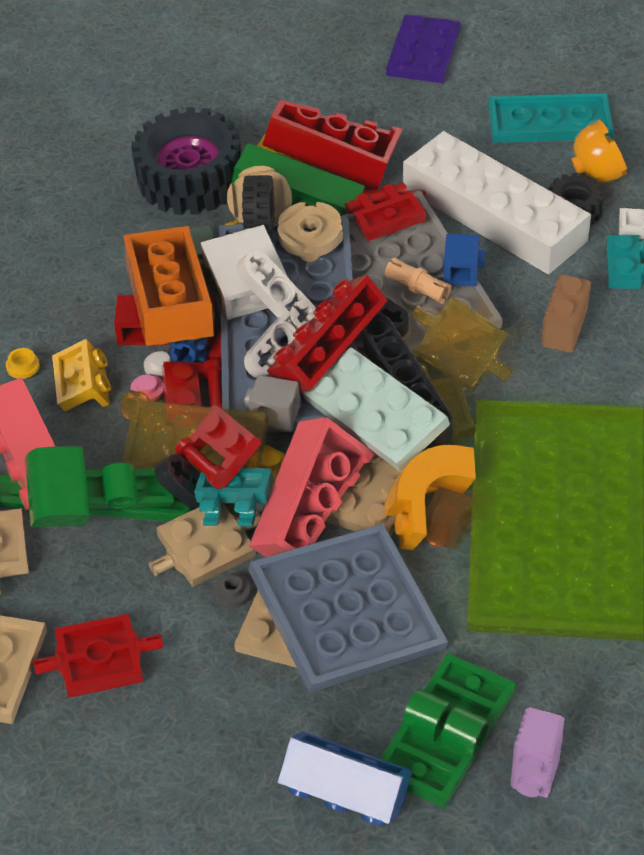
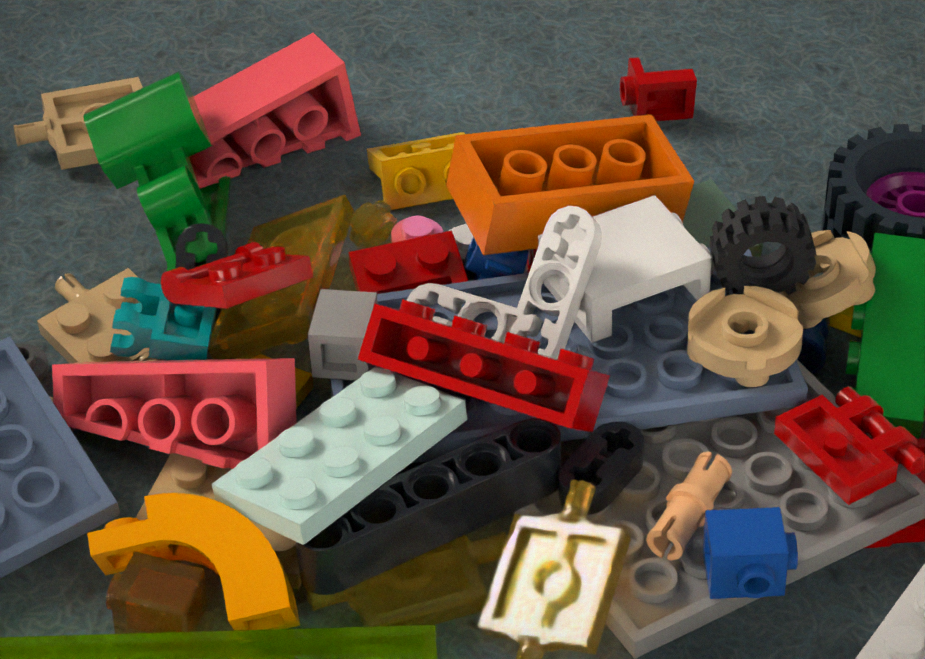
camera: 80 degrees right, 5 degrees down
(22, 363) = (447, 109): yellow plate -> none
(38, 263) = (659, 93): none -> red bracket

